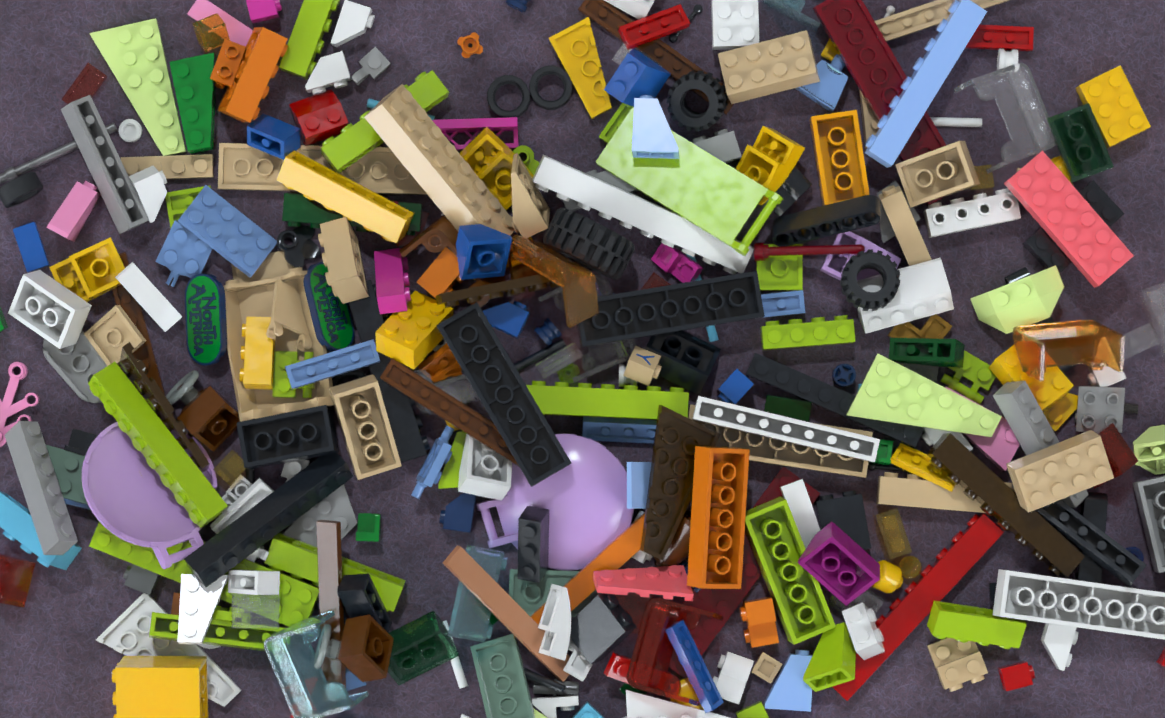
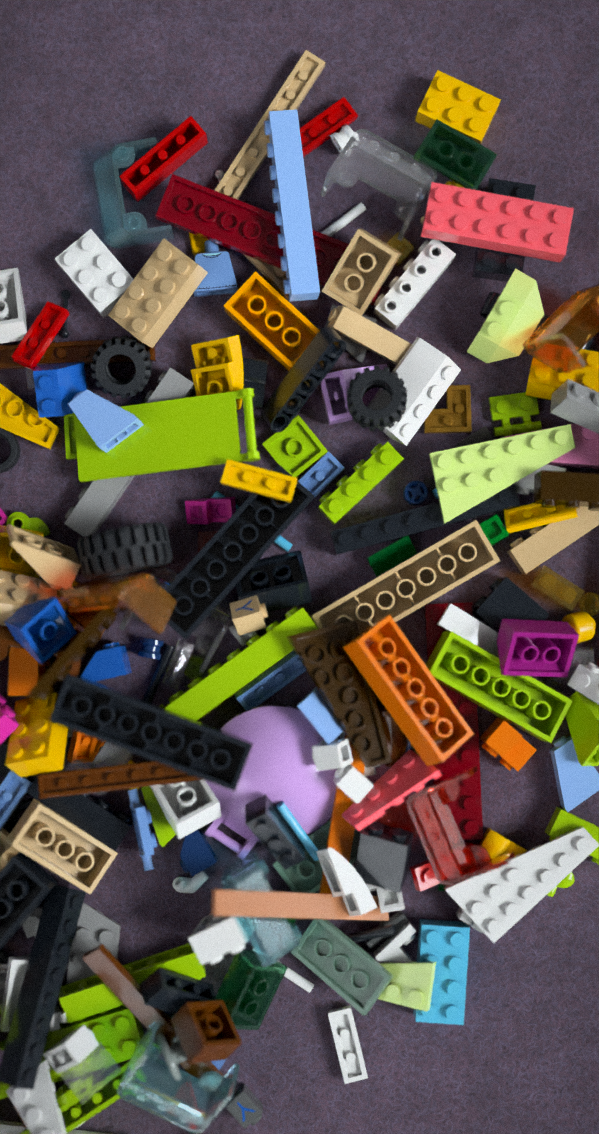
camera: 45 degrees left, 0 degrees up
(368, 527) = (132, 922): green panel -> none
(431, 587) = (216, 937): none -> white brick
(434, 535) = (189, 885): none -> white arm
(550, 557) = (297, 829): none -> medium azure bar
(621, 552) = (352, 782): none -> white brick
(623, 519) = (332, 756): none -> white brick
(636, 212) = (130, 498): white brick -> none
(694, 666) = (485, 825): blue plate -> none
(731, 271) = (259, 480): none -> yellow plate
(732, 676) = (520, 806): white brick -> none
(734, 387) = (336, 573): blue brick -> none
(763, 251) = (272, 444): dark red piece -> none
(766, 667) = (541, 776): tan plate -> none
(786, 429) = (406, 573): white brick -> none
(872, 466) = (496, 547): black hinge -> none
(927, 351) = (467, 420): dark green slope -> none

